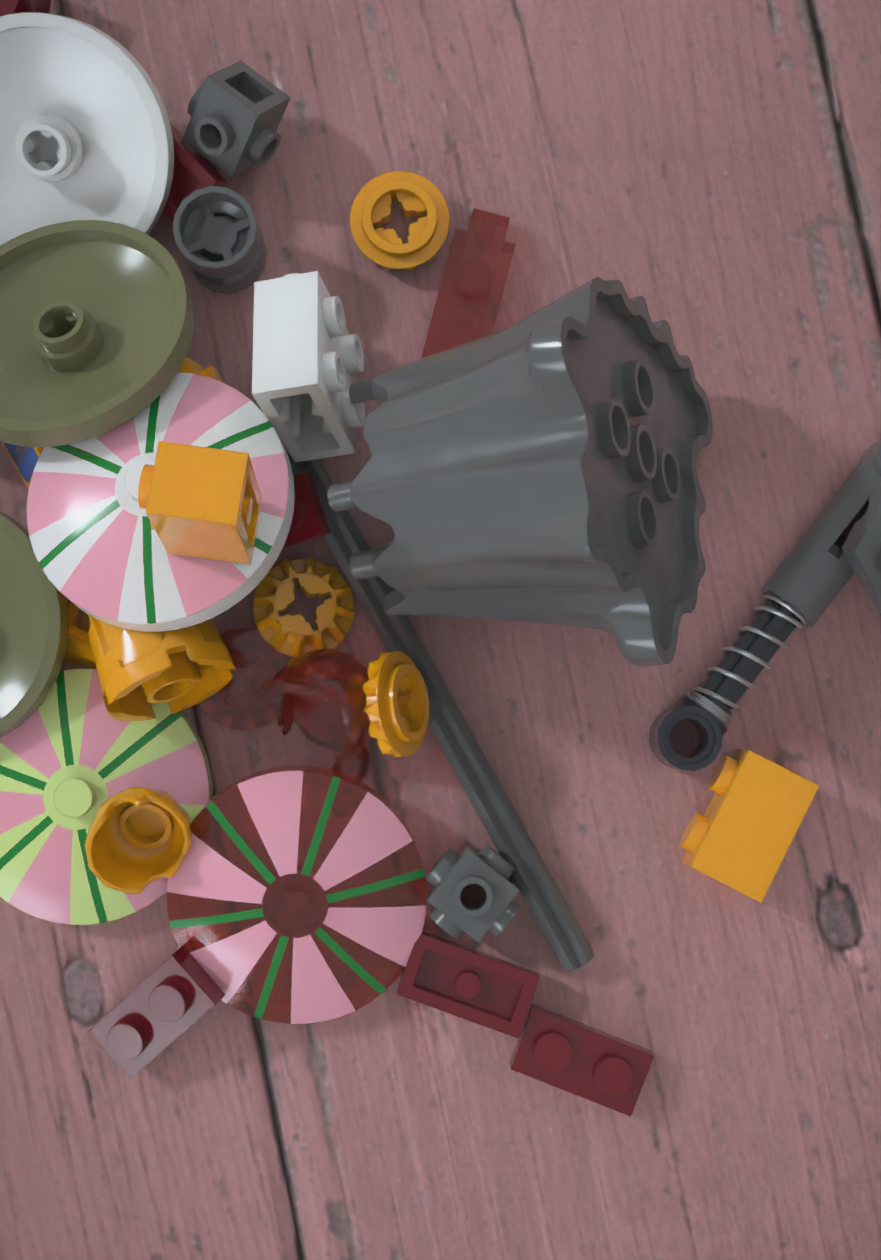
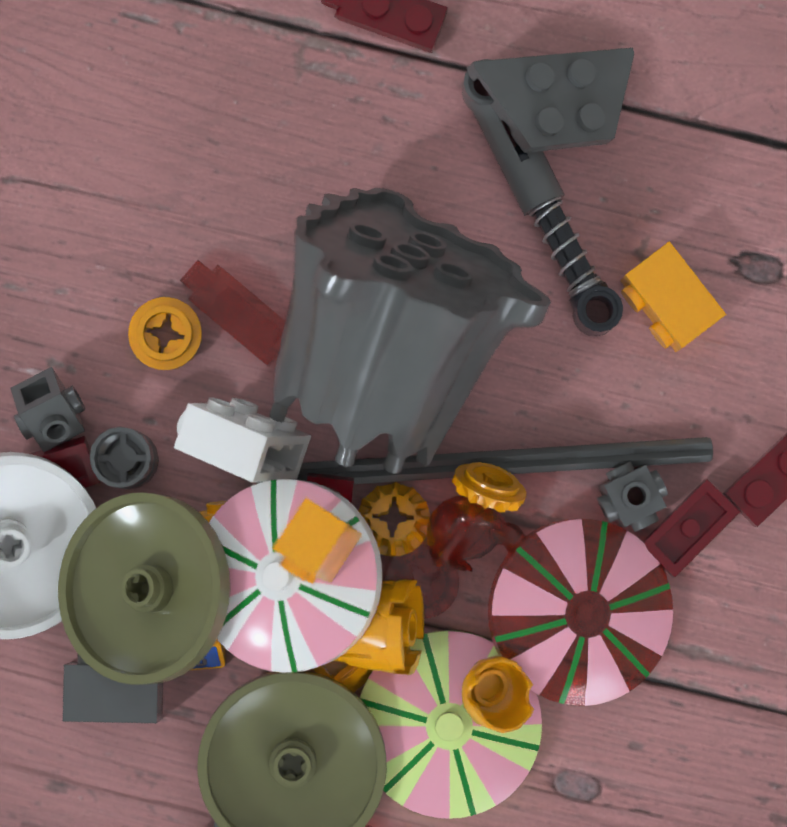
camera: 65 degrees left, 0 degrees up
(157, 1012) = (613, 739): plate -> none

